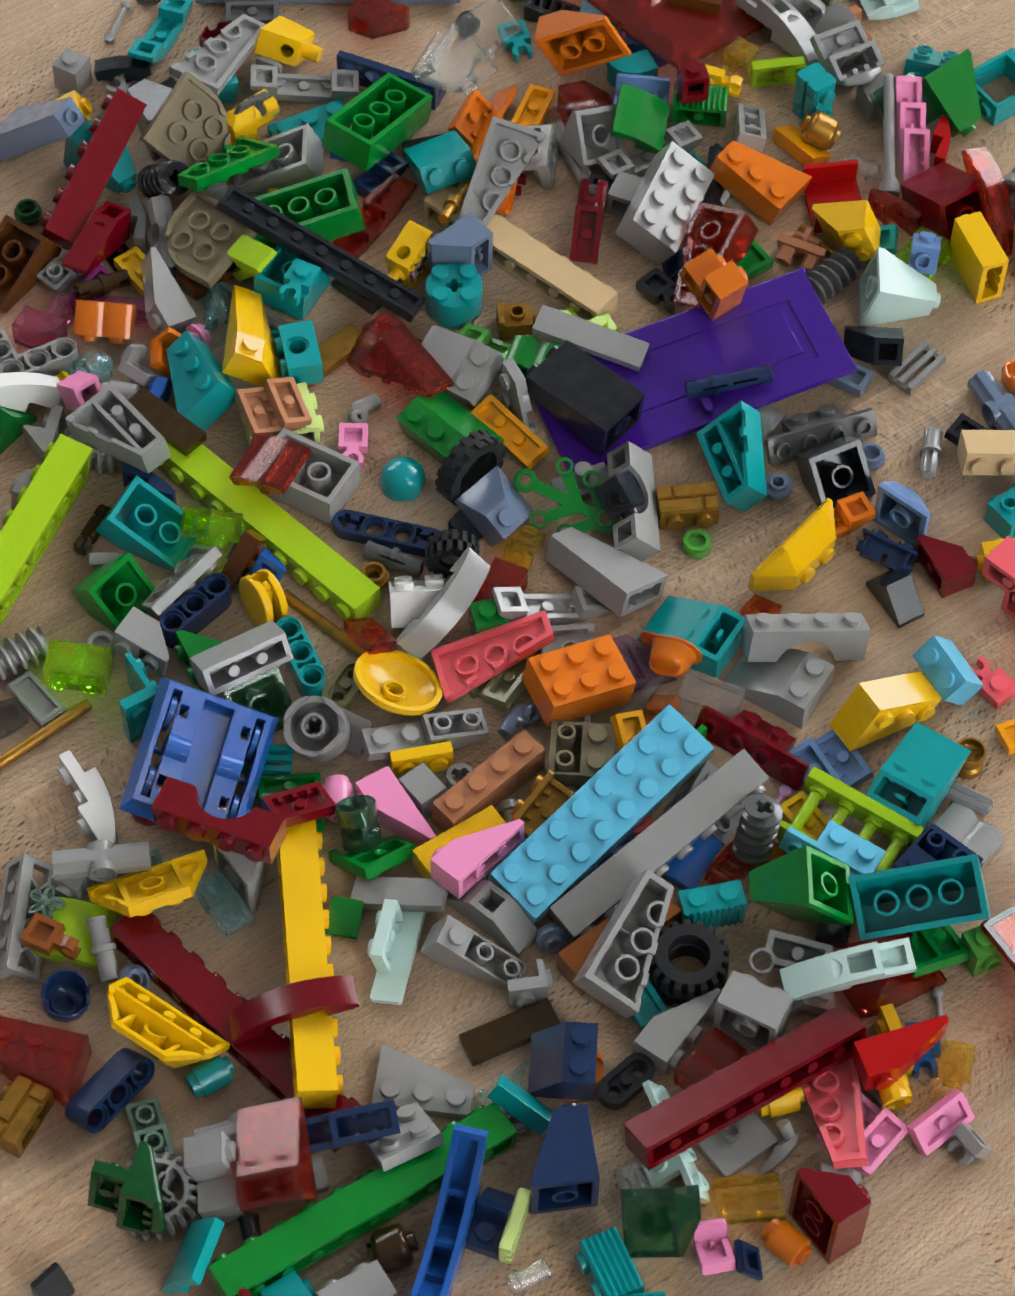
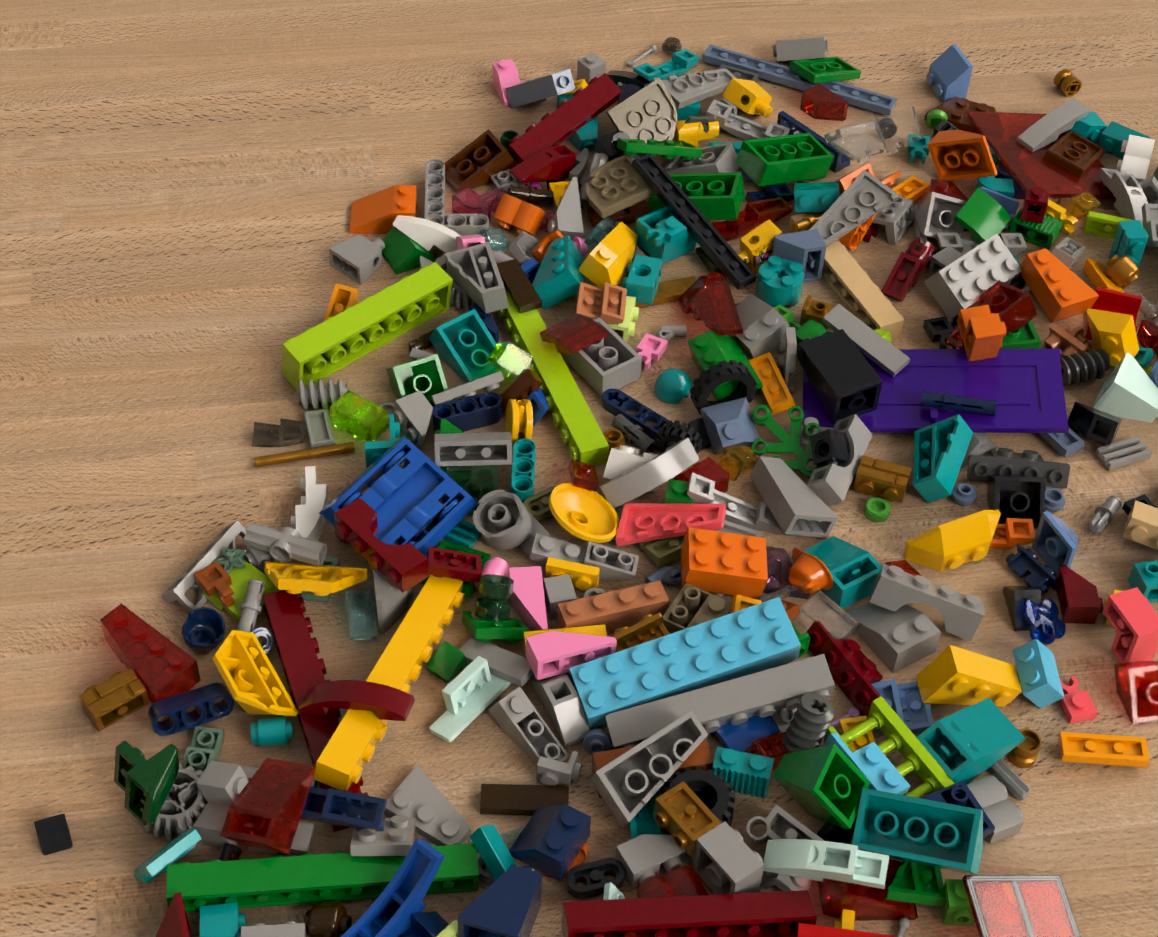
camera: 25 degrees right, 10 degrees down
(249, 257) = (639, 204): lime slope -> none
(323, 623) = (553, 453): pearl gold bar -> none
(690, 982) = (684, 816): none -> pearl gold bracket
(925, 607) = (1044, 621): none -> clear blue plate

